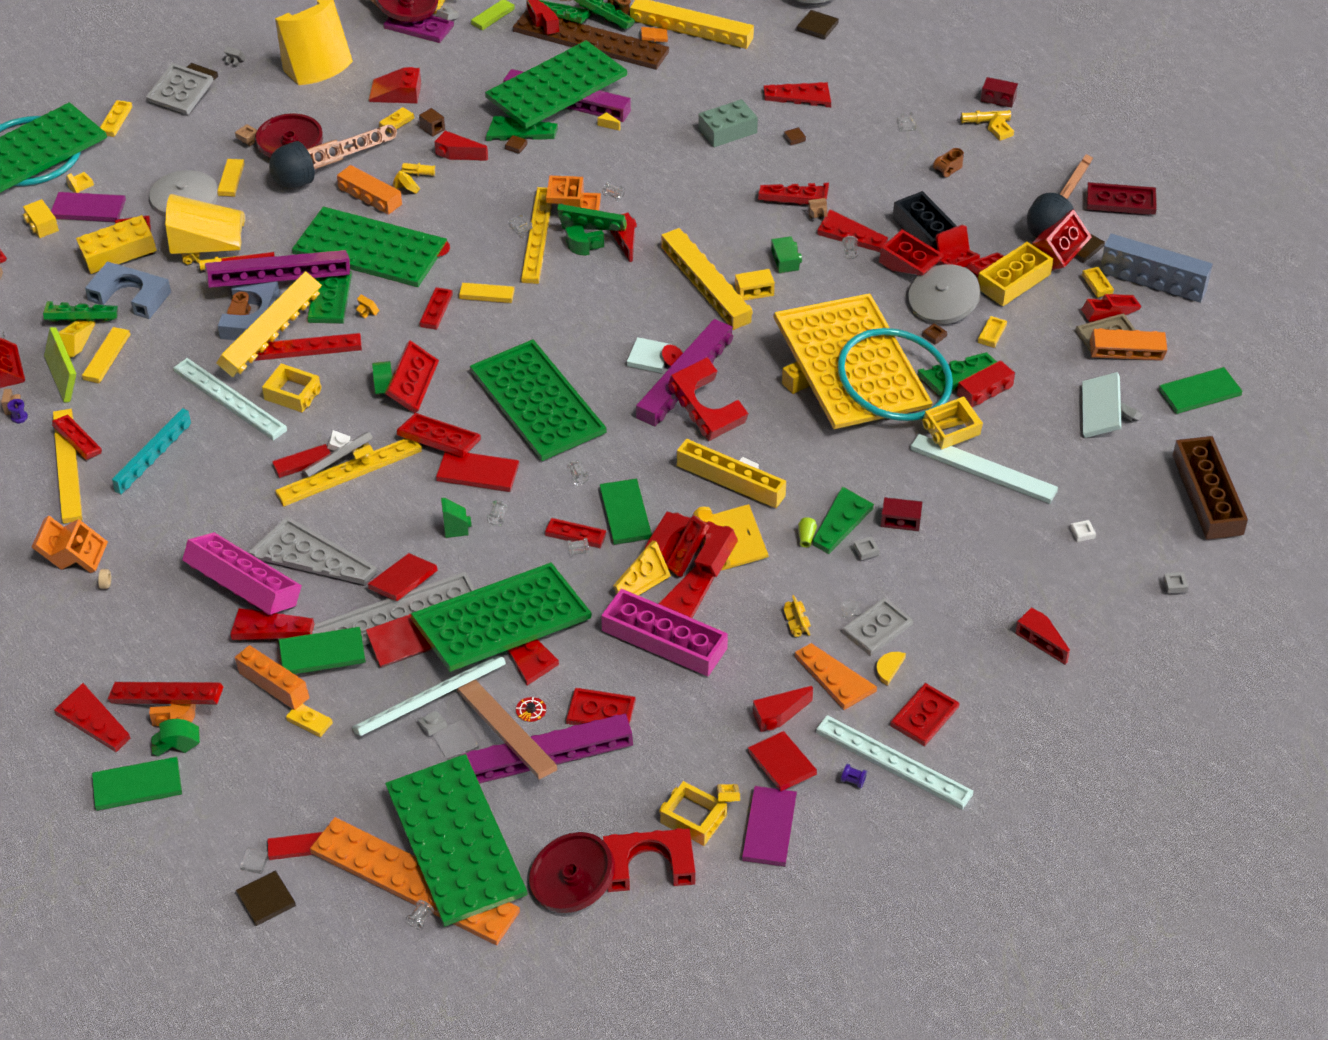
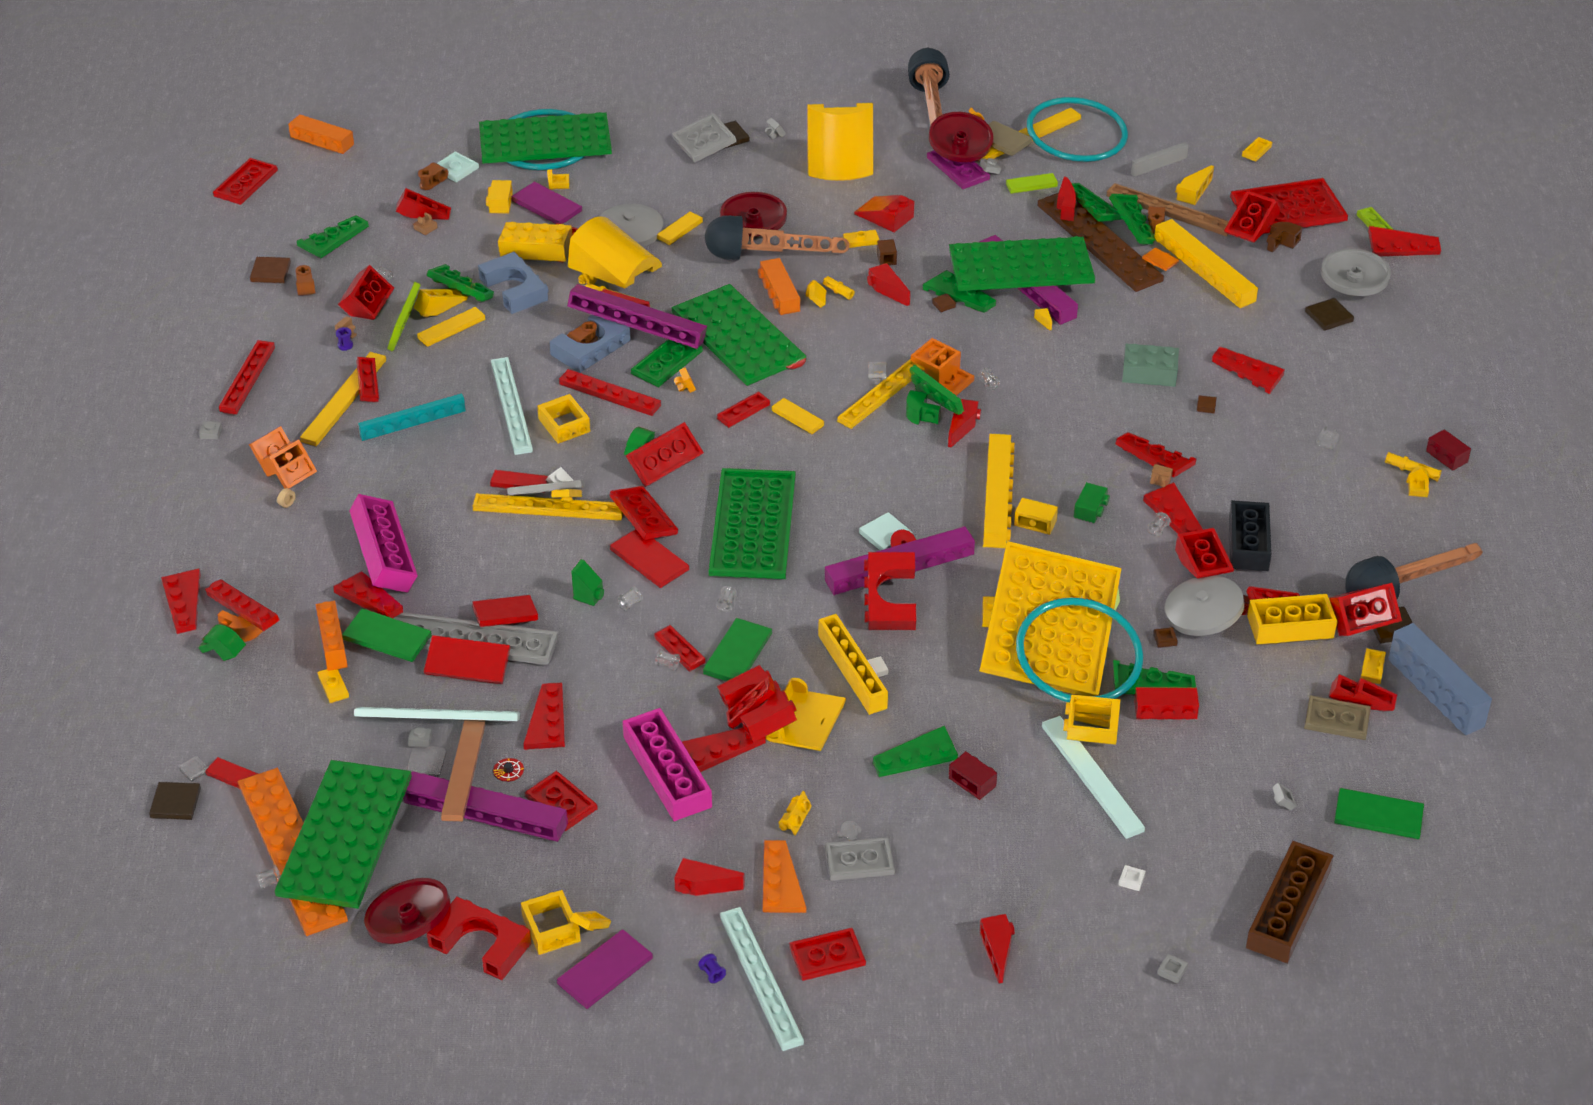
camera: 35 degrees right, 5 degrees down
(116, 117) = (634, 141): yellow tile -> none
(136, 783) = (167, 664): green tile -> none
(246, 134) = (720, 196): medium nougat tile -> none
(268, 325) = (587, 357): yellow brick -> none
(303, 549) = (454, 553): light grey wing -> none
(500, 616) = (546, 680): green plate -> none
(644, 572) = (697, 707): yellow wing -> none
(782, 761) = (664, 922): red tile -> none
(807, 528) = (876, 744): lime cone -> none
(866, 548) = (913, 788): light grey plate -> none
(889, 665) = (836, 896): yellow tile -> none
(949, 162) = (1333, 492): dark orange piece -> none
(955, 247) = (1254, 567): red bracket -> none
(992, 331) = (1223, 662): yellow tile -> none
(1101, 405) = (1259, 776): light aqua tile -> none
(1121, 198) = (1477, 601): dark red plate -> none
(1128, 344) = (1341, 735): orange brick -> none

